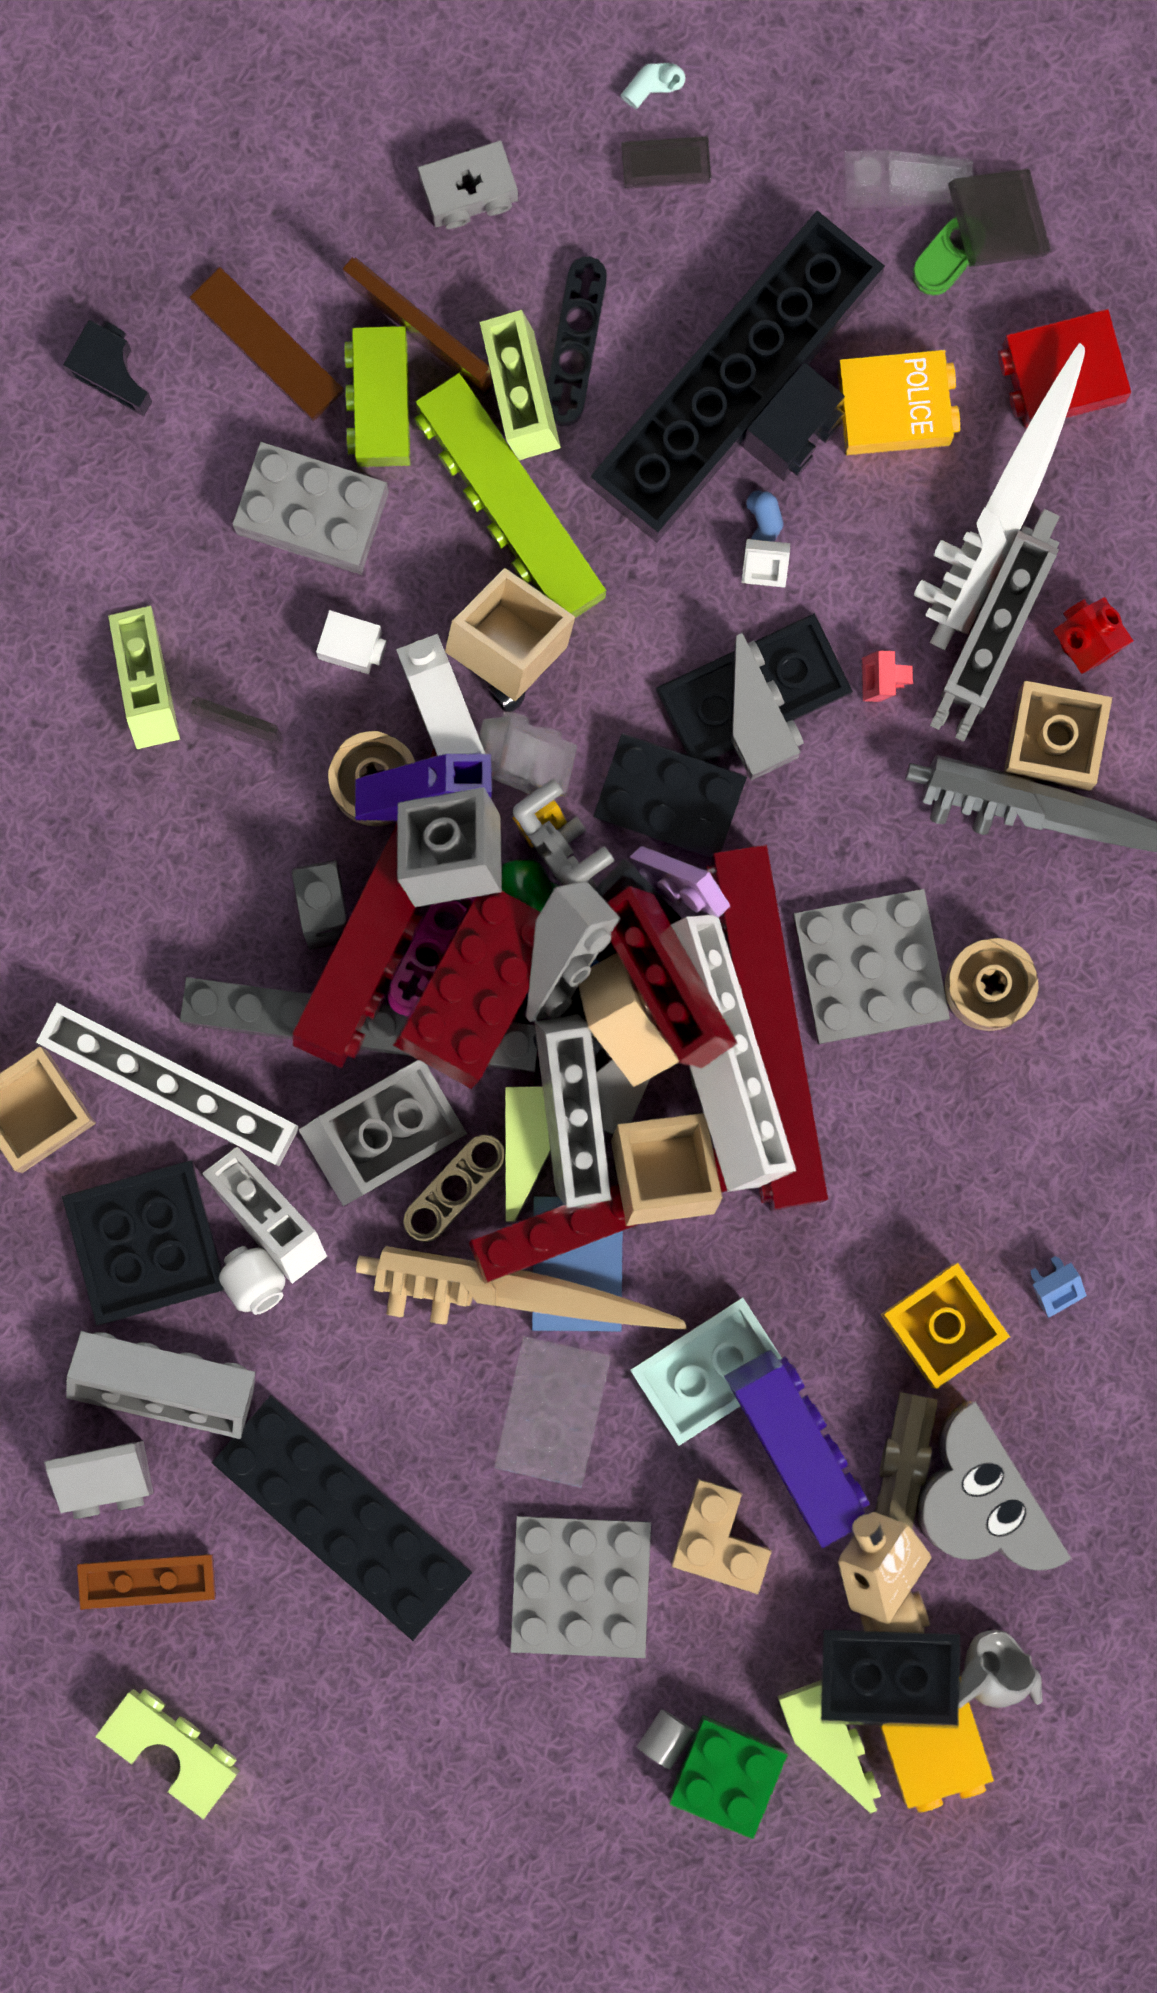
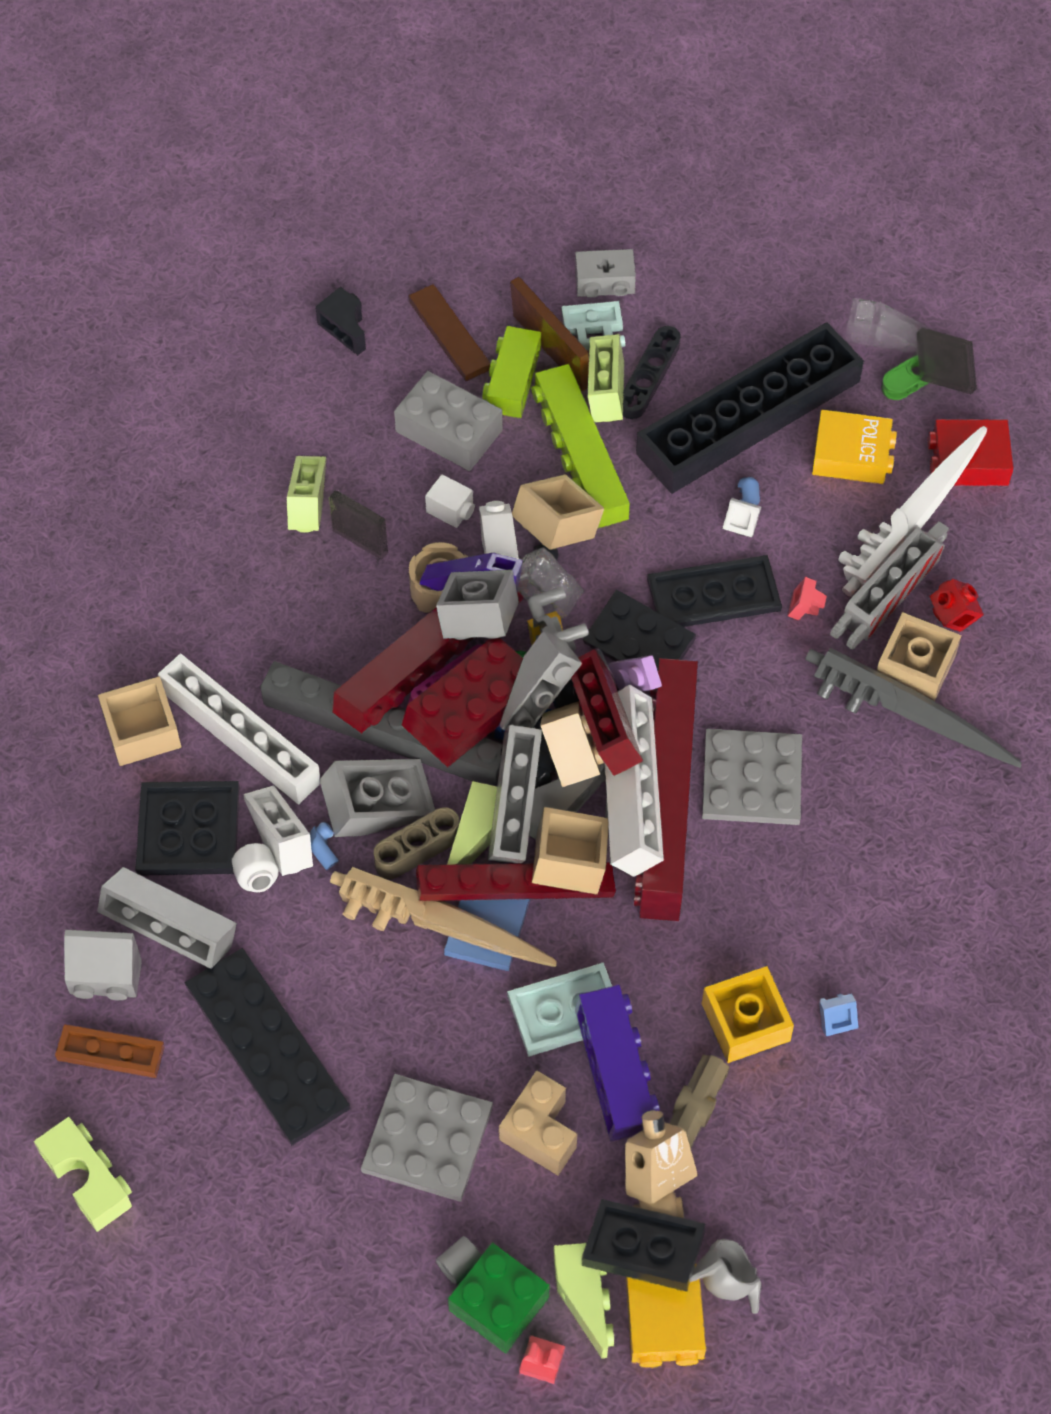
camera: 15 degrees right, 25 degrees down
(320, 903) = (380, 631): dark grey torso -> none
(325, 1222) = (319, 845): none -> medium blue arm
(470, 271) = (593, 319): none -> light aqua plate
(552, 1412) = (442, 1008): clear plate -> none
(653, 79) = (739, 246): light aqua arm -> none
(666, 162) = (735, 291): clear smoke tile -> none
(758, 727) = (711, 607): light grey slope -> none
(794, 422) = (781, 437): black piece -> none
(797, 1831) = (542, 1359): none -> coral tile
(982, 1501) = (745, 1143): light grey brick -> none
(1015, 977) = (835, 800): tan brick -> none

